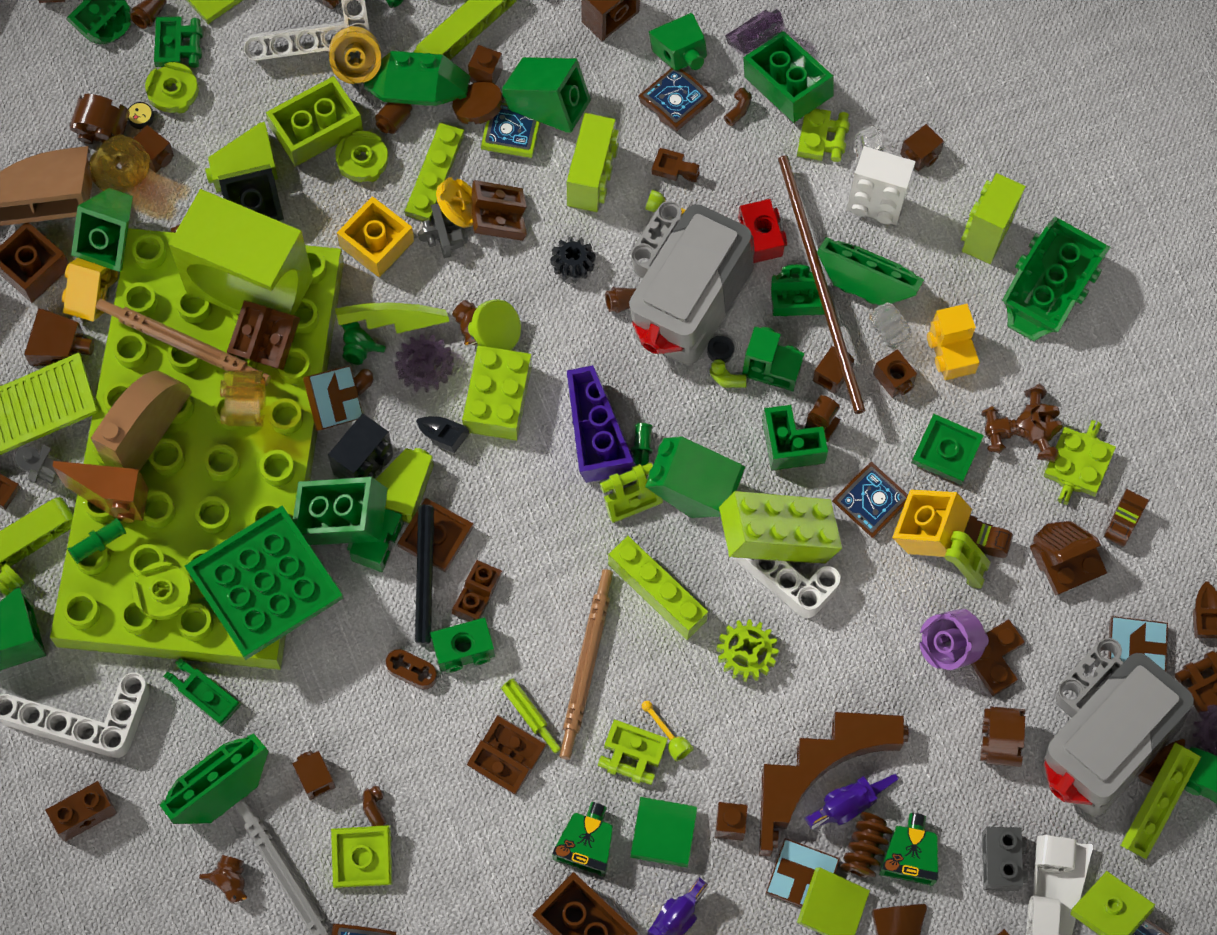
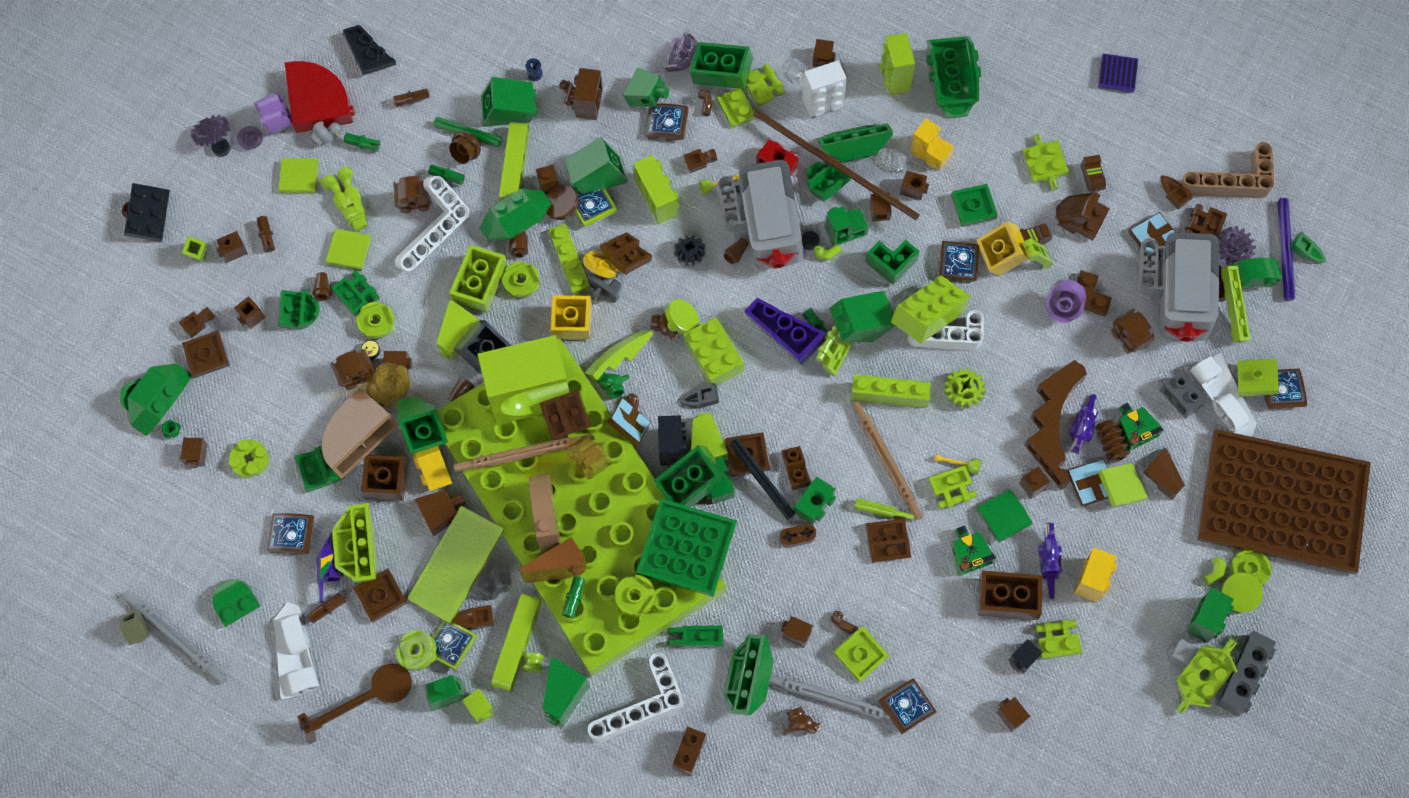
camera: 35 degrees left, 0 degrees up
(354, 40) = (461, 221): yellow brick -> none
(432, 354) = (664, 372): clear purple gear -> none
(768, 138) = (736, 107): none -> lime plate
(824, 415) = (897, 234): reddish brown leg -> none
(1033, 424) = (1006, 159): reddish brown piece -> none

